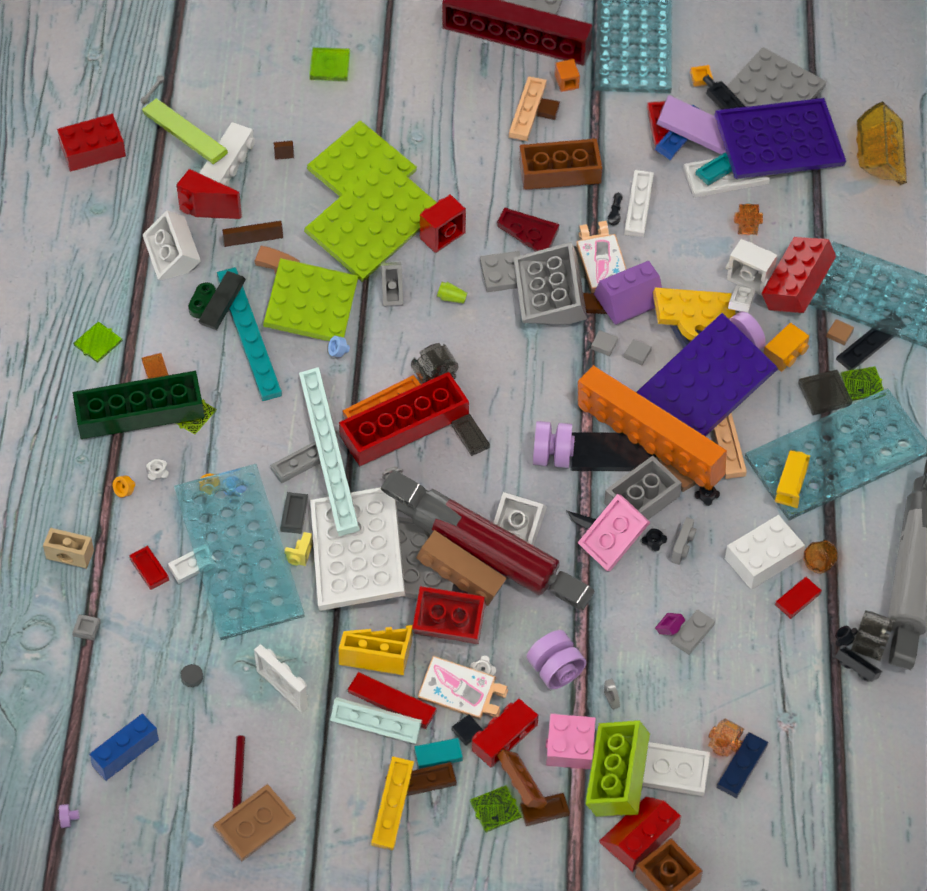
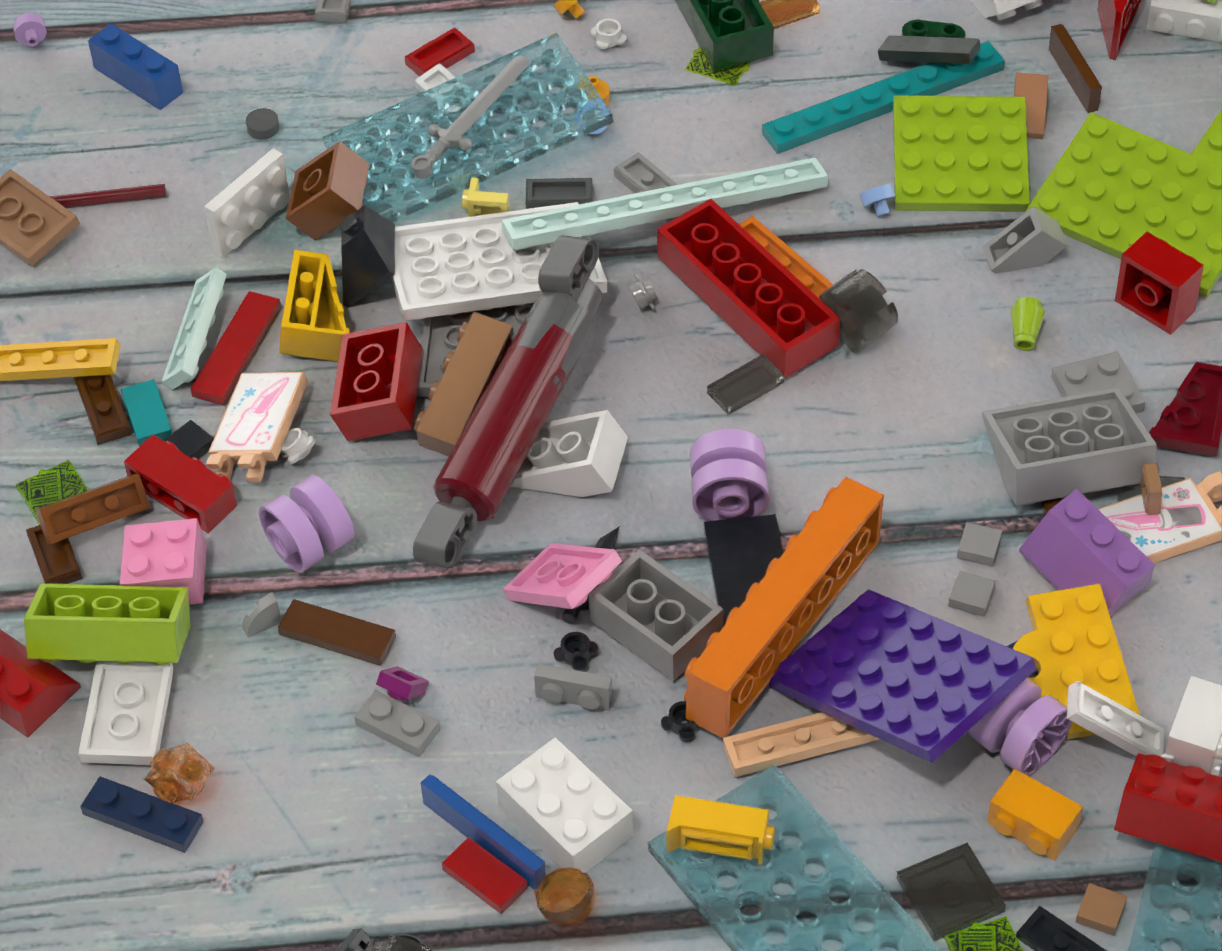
camera: 85 degrees right, 5 degrees down
(249, 557) = (452, 136): none -> light grey sword
(282, 630) = (327, 190): none -> dark orange brick
(343, 613) = (366, 253): none -> black slope
(590, 255) = (1151, 489): none -> medium nougat tile
(625, 657) = (337, 632): none -> reddish brown tile
(774, 592) = (482, 830): none -> blue tile

